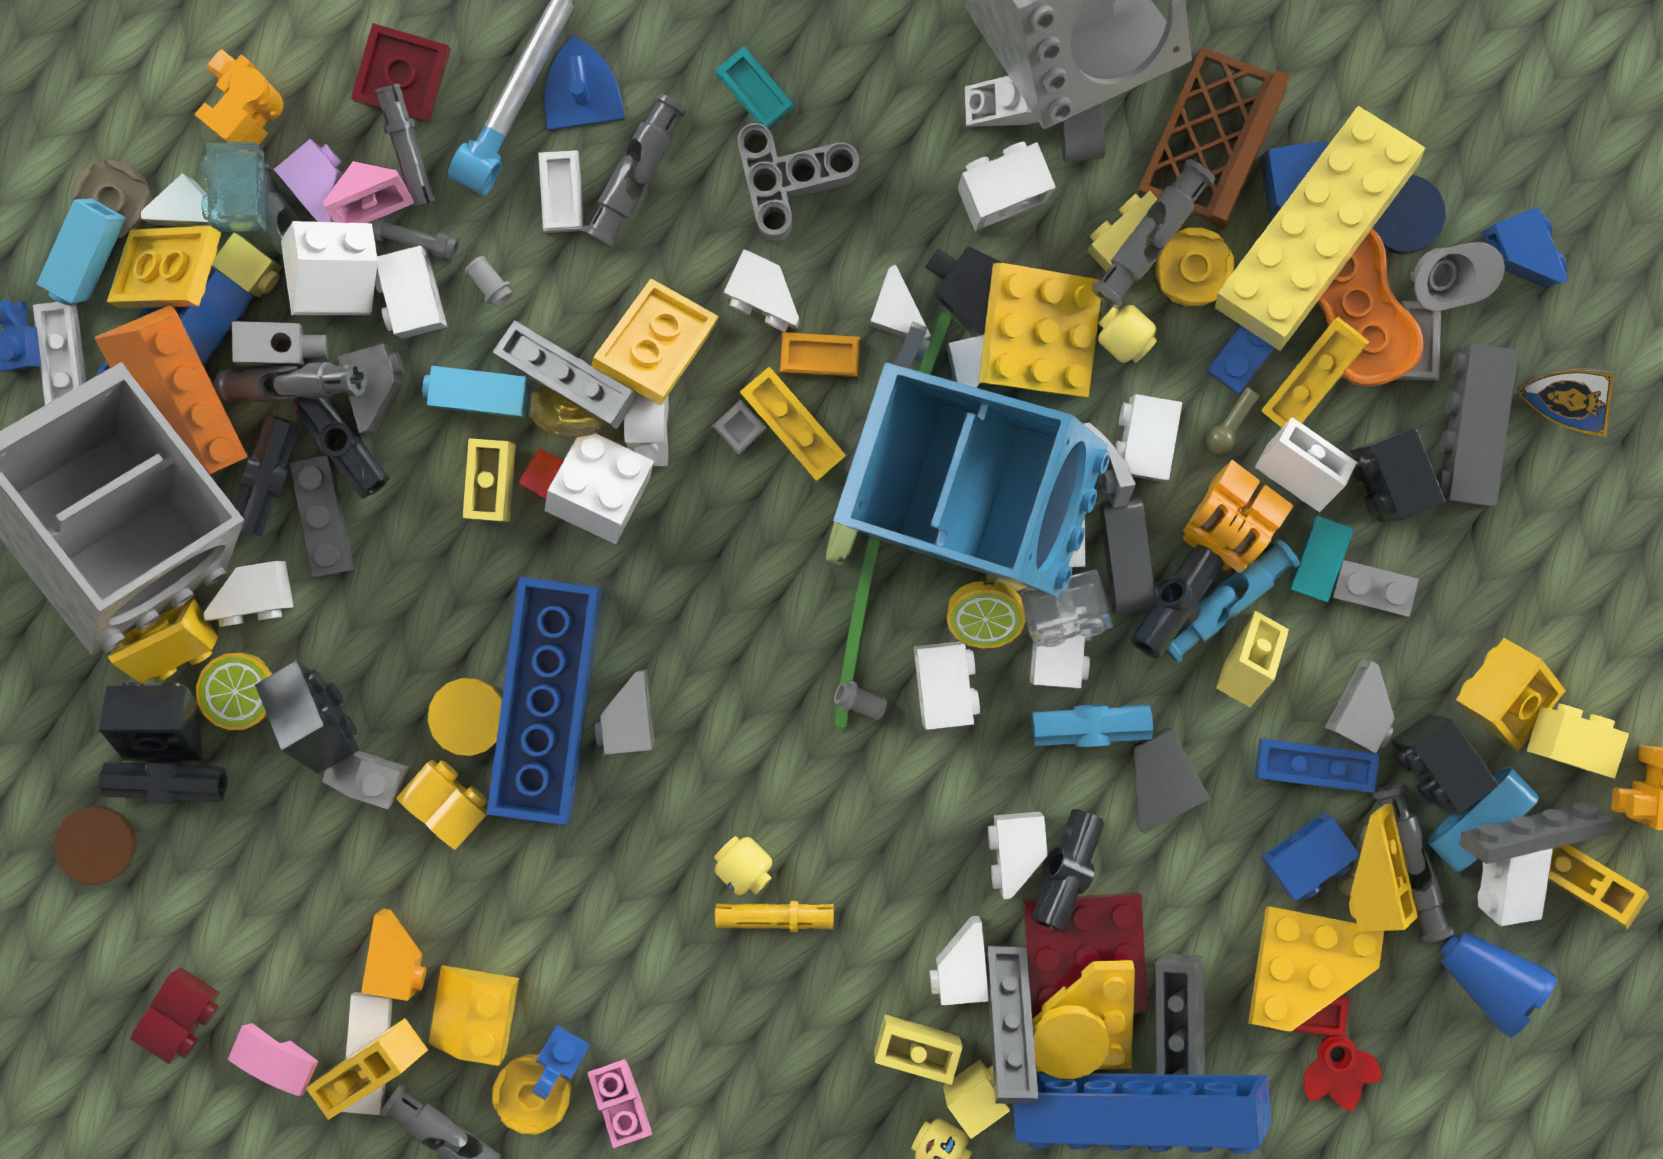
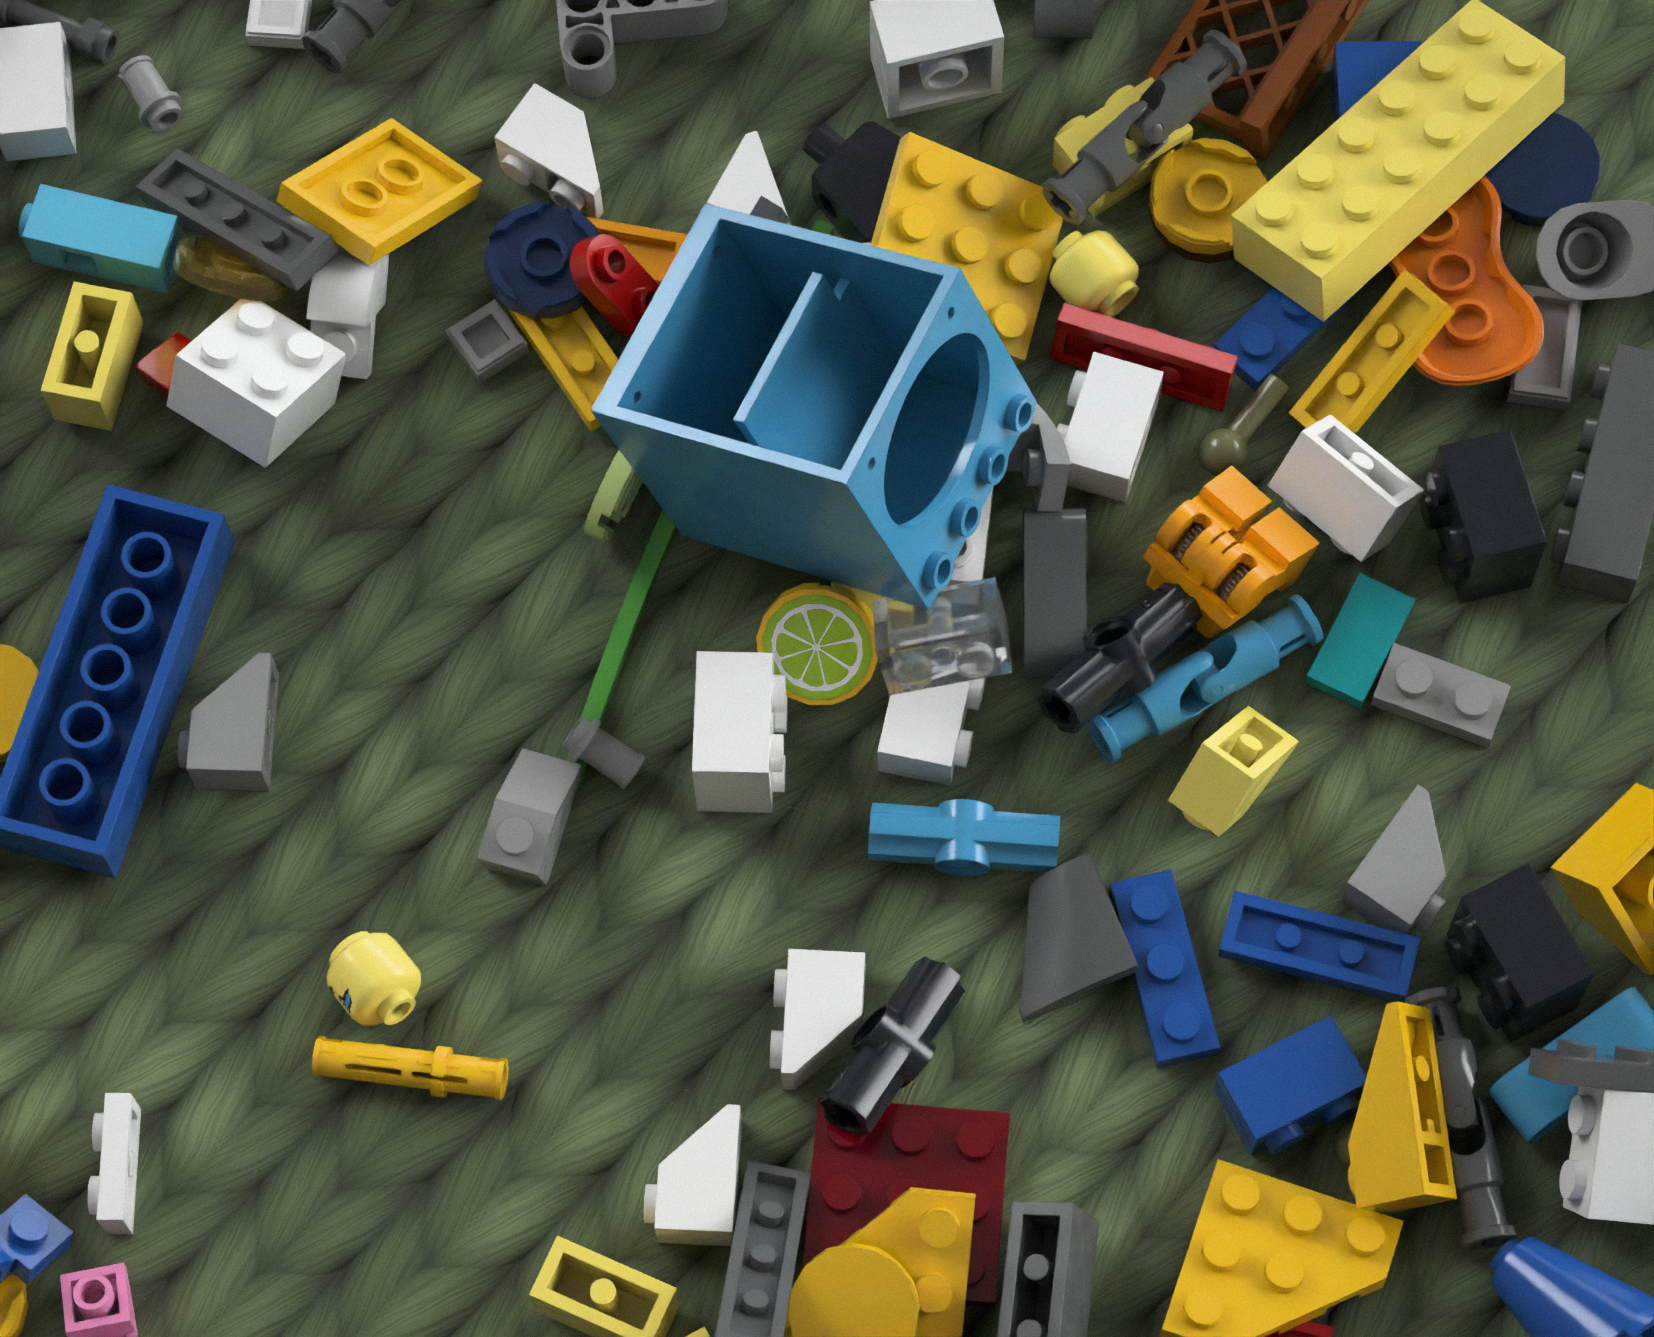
camera: 10 degrees right, 20 degrees down
(605, 986) = (117, 1138): none -> white plate
(770, 373) = (531, 259): none -> dark blue tile
(821, 386) = (612, 281): none -> red plate
(822, 750) = (530, 817): none -> light grey slope
(1165, 383) = (1190, 369): none -> red plate
(1220, 777) = (1167, 969): none -> blue plate

